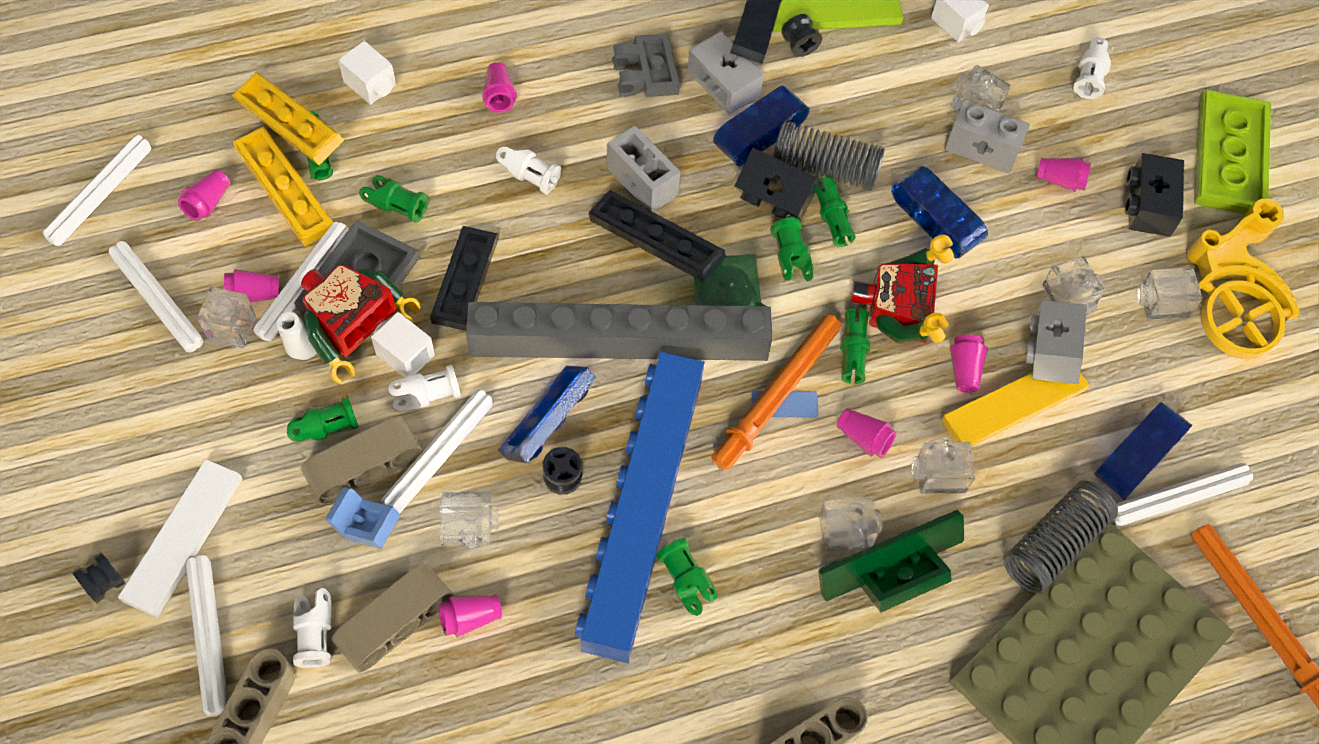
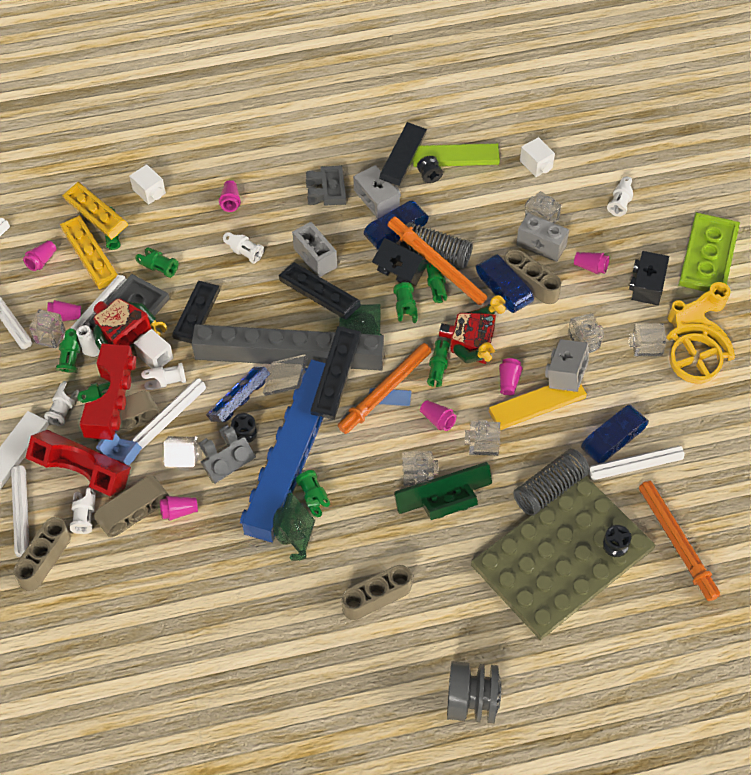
camera: 10 degrees right, 5 degrees down
(258, 528) = (57, 451): none -> red arch
(260, 447) = (60, 406): none -> white piece
(265, 347) = (70, 347): none -> green piece
(331, 469) = (102, 416): none -> red arch
(542, 525) = (228, 458): none -> plate
(621, 378) = (285, 375): none -> clear piece
(664, 639) = (293, 526): none -> clear green hat
(704, 375) = (335, 373): none -> black tile
(818, 166) = (413, 240): none -> orange axle
(996, 205) = (539, 279): none -> dark tan beam
(1184, 624) = (621, 536): none -> black wheel

